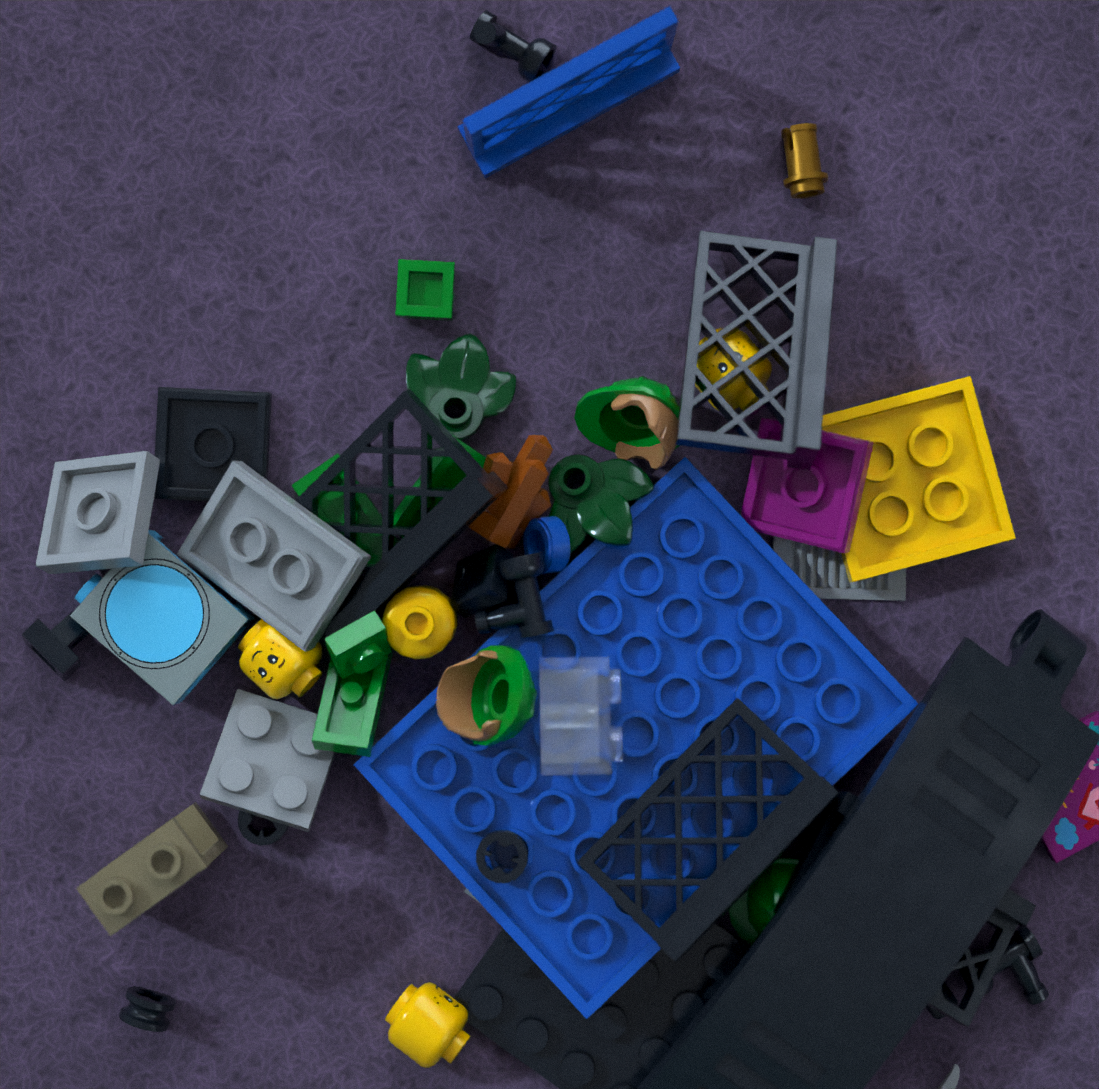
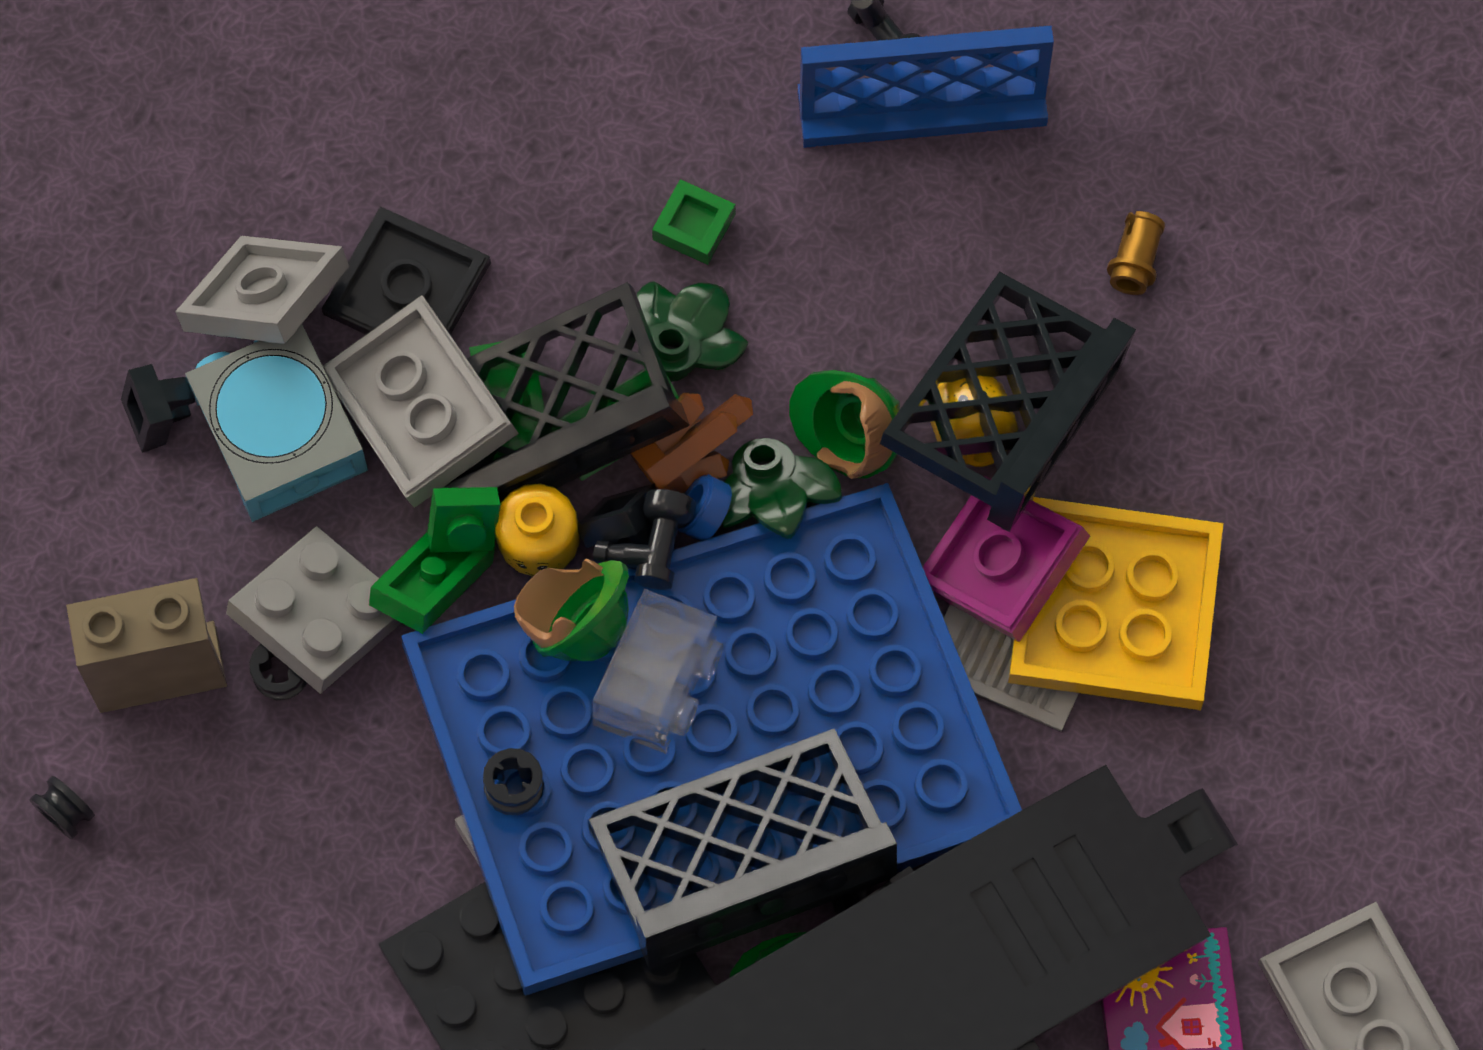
camera: 20 degrees right, 20 degrees down
(278, 663) = (374, 510): yellow head -> none
(428, 1025) = (349, 948): yellow head -> none

